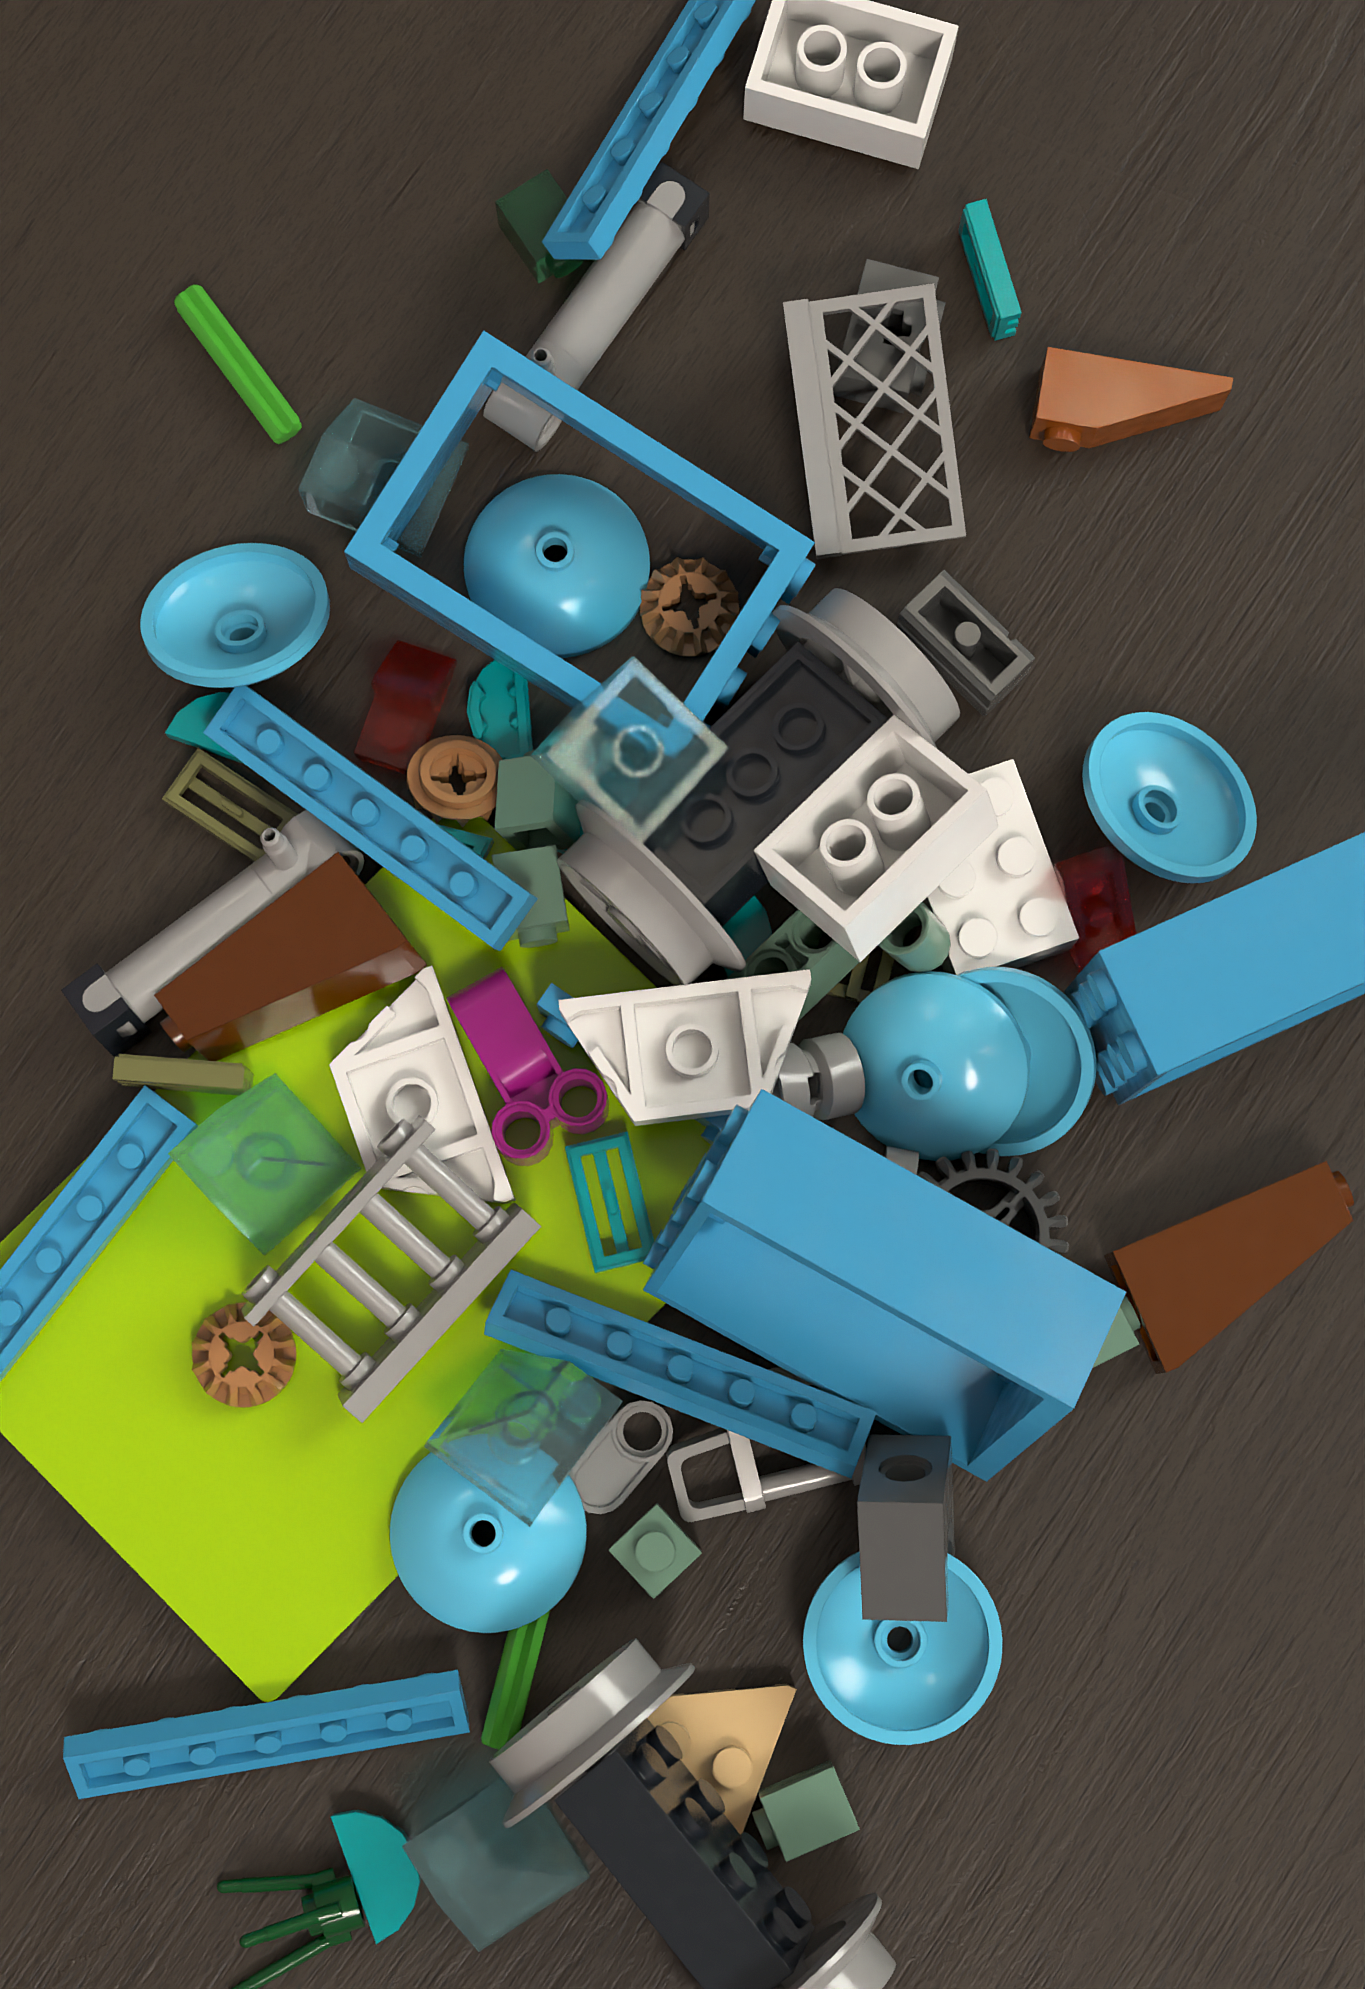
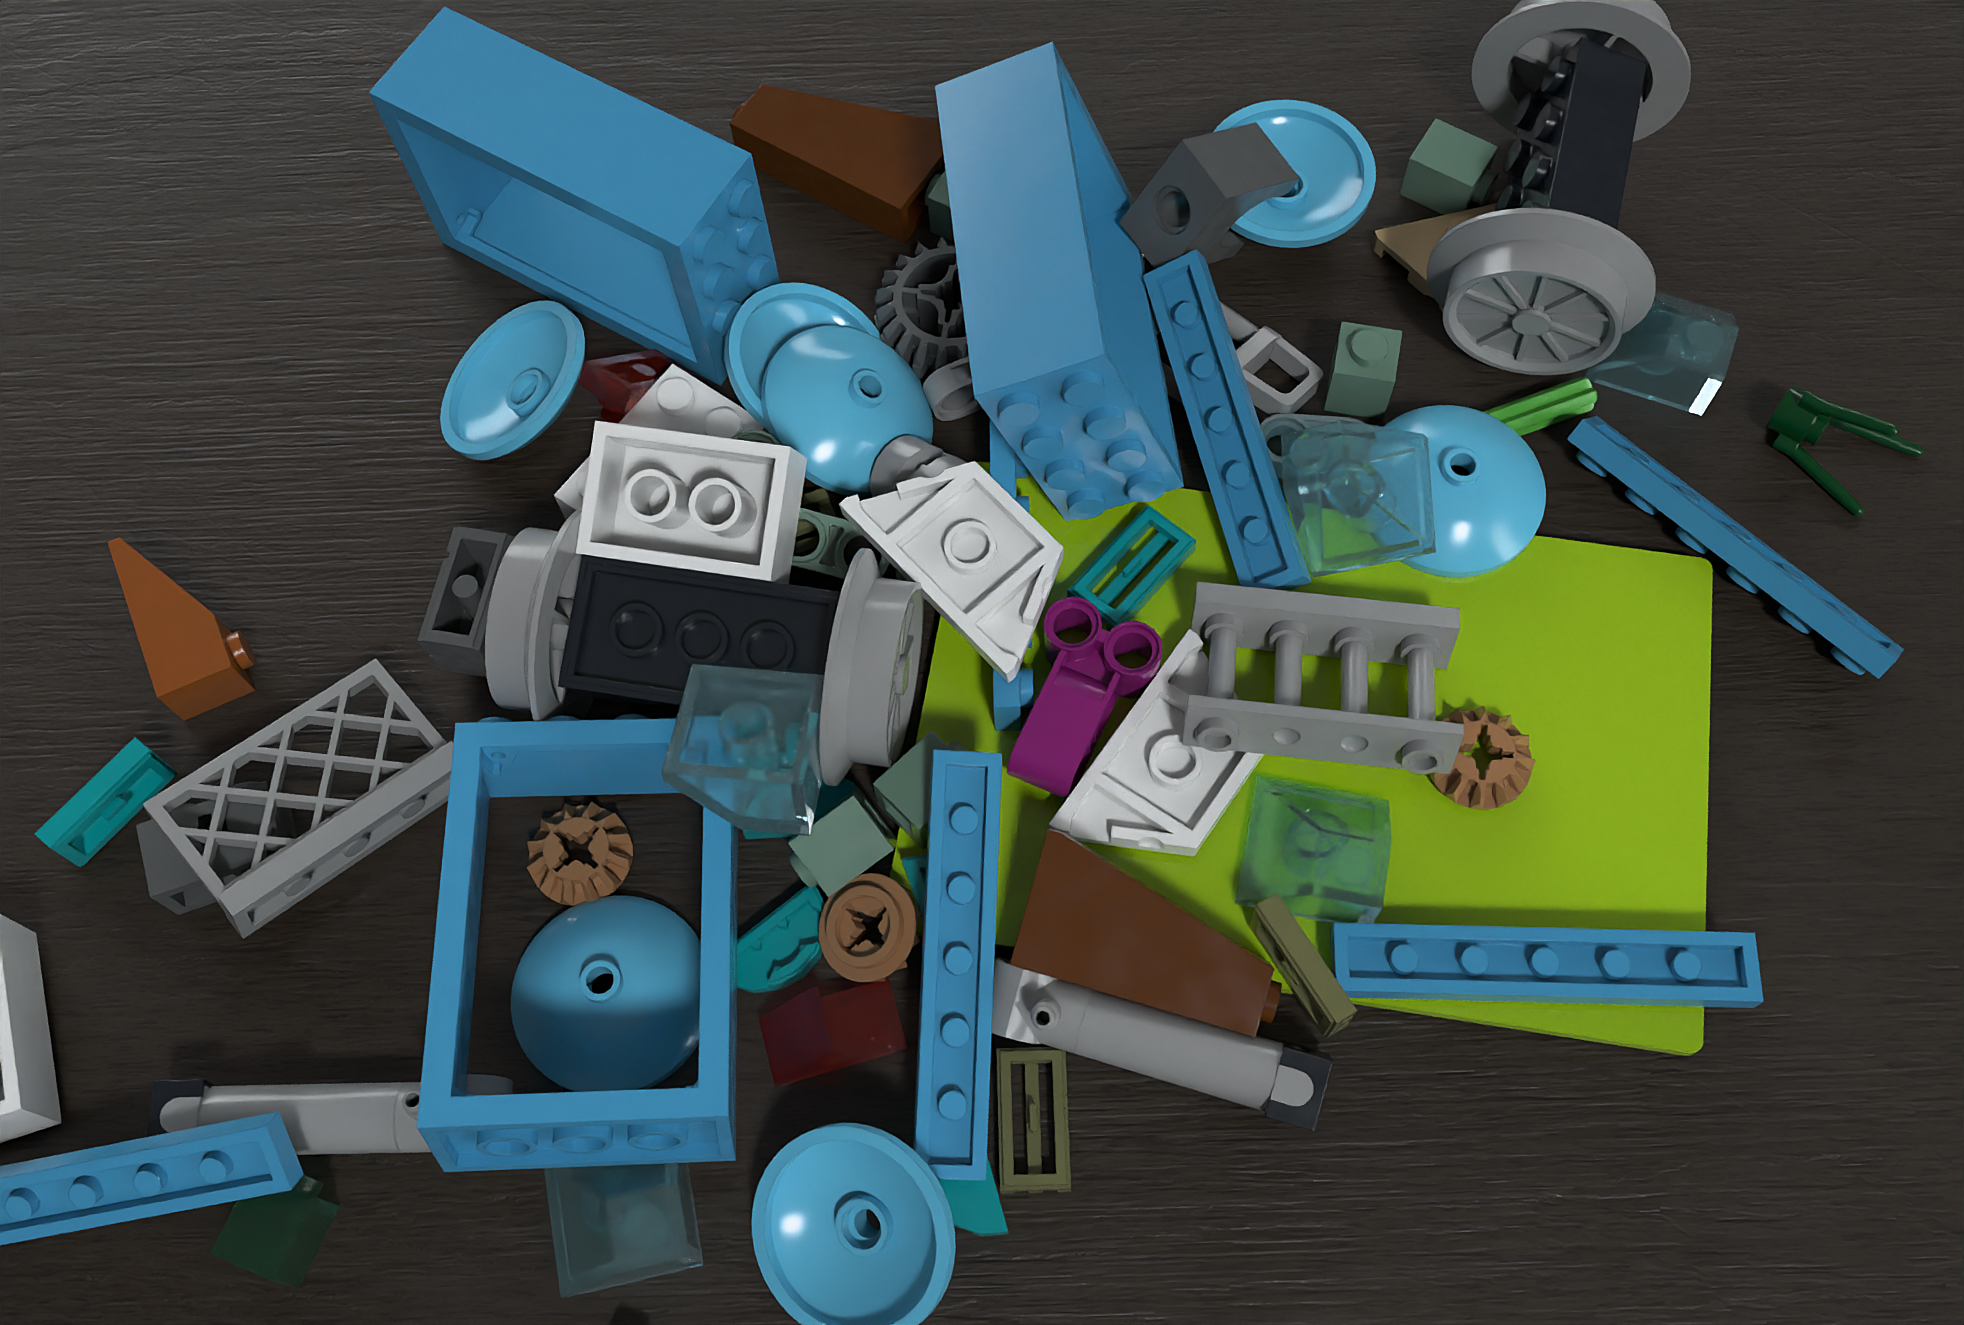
camera: 120 degrees left, 15 degrees down
(379, 1869) = (1742, 411): teal tile -> none

